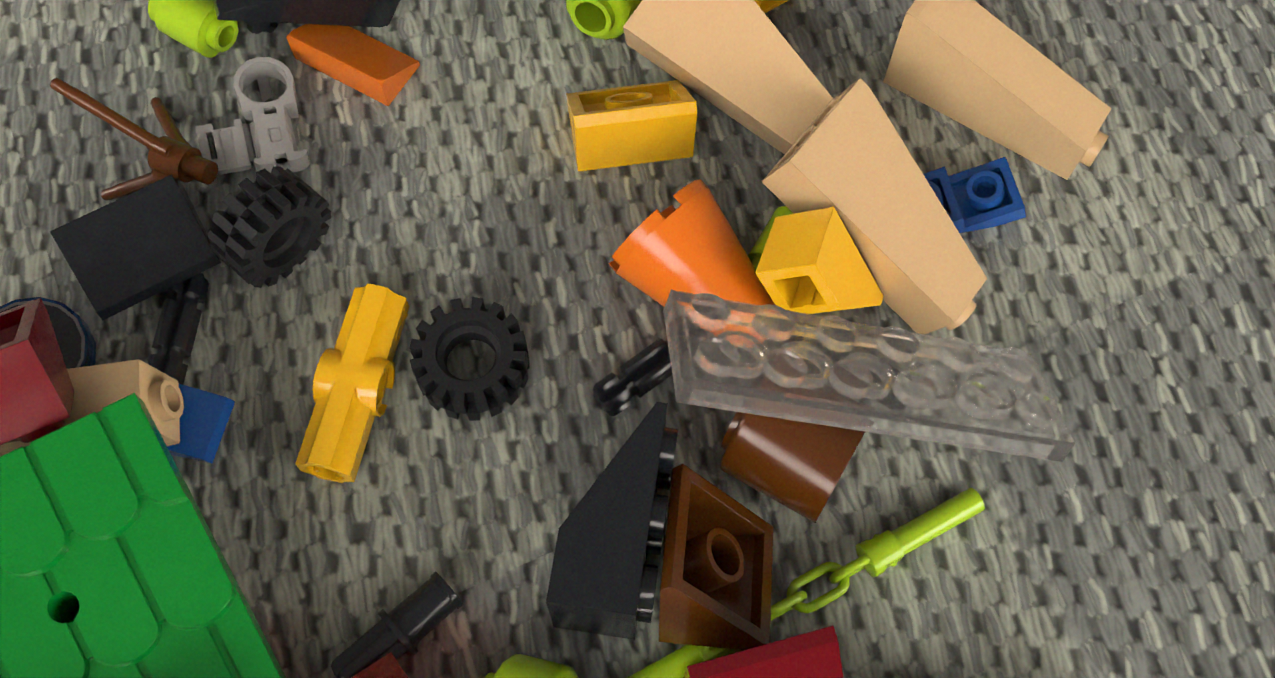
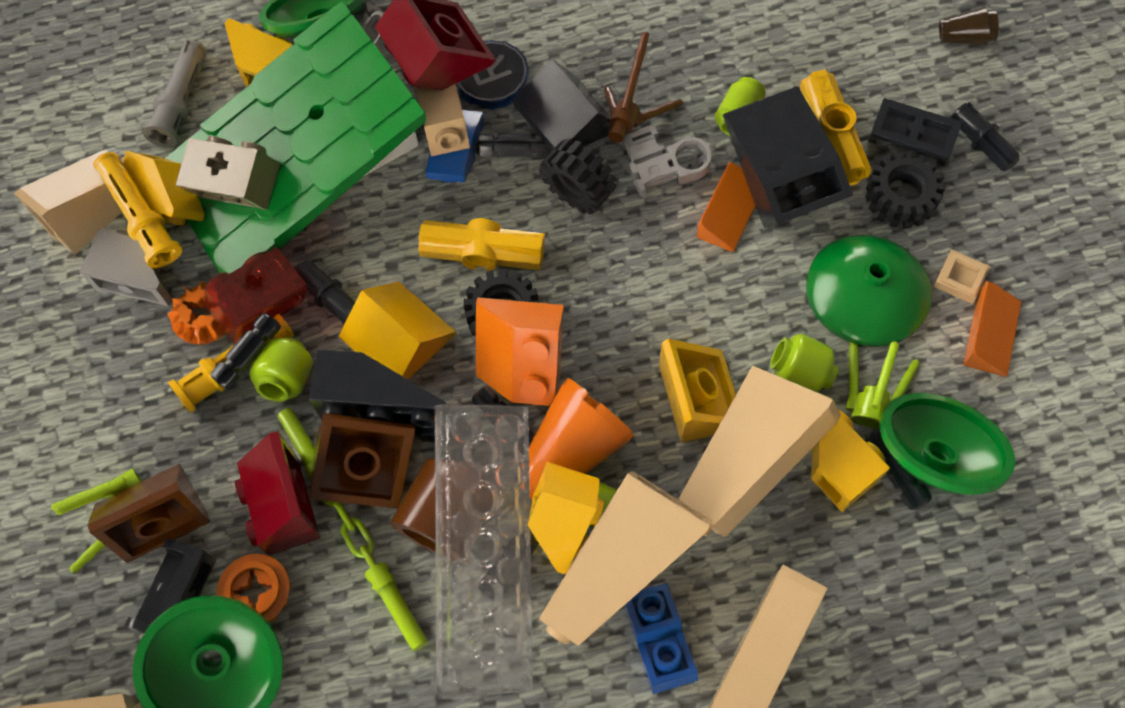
camera: 90 degrees right, 0 degrees up
(485, 523) = (395, 328): none -> yellow slope
(556, 317) = (519, 349): none -> orange slope

